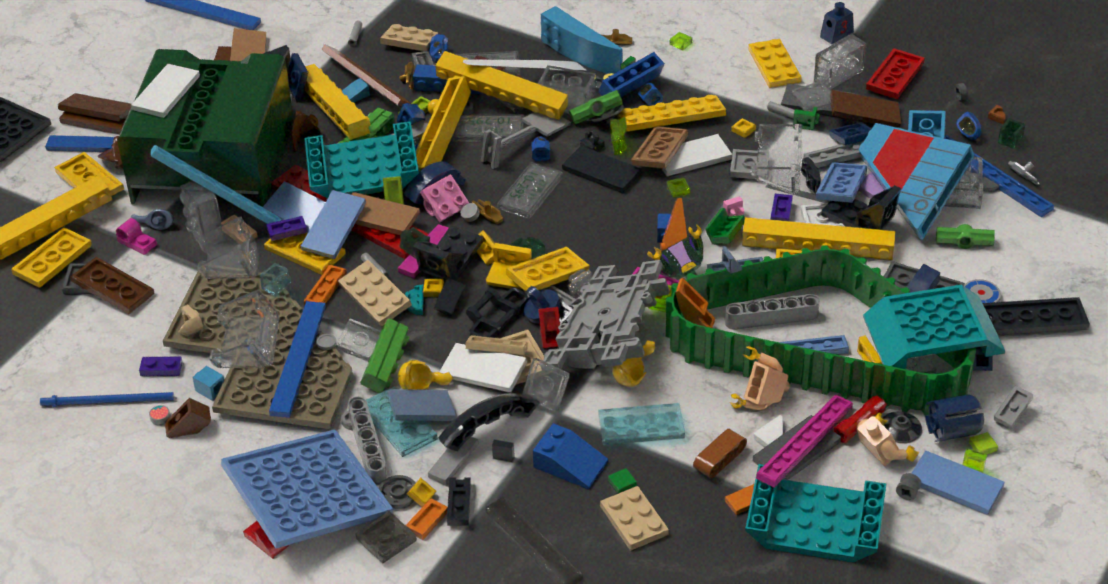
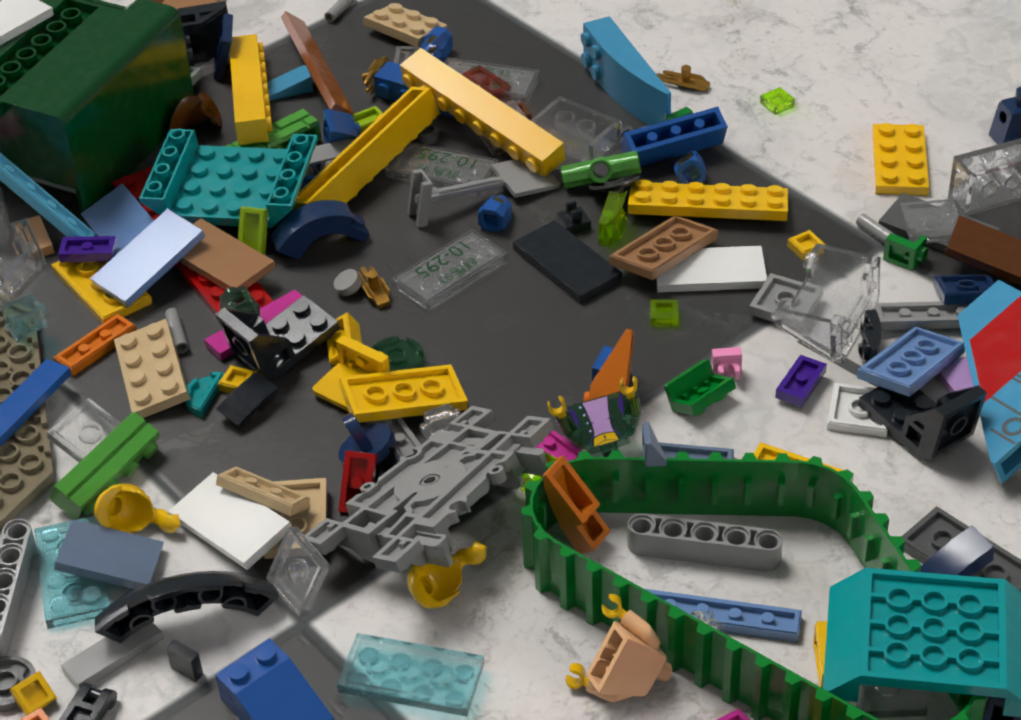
camera: 20 degrees right, 0 degrees up
(326, 341) = (40, 424): light grey piece -> none
(443, 198) = (319, 254): bright pink plate -> none
(500, 303) = (314, 426): black bar -> none
(526, 63) = (535, 89): white sticker -> none
(798, 235) = (837, 442): yellow brick -> none

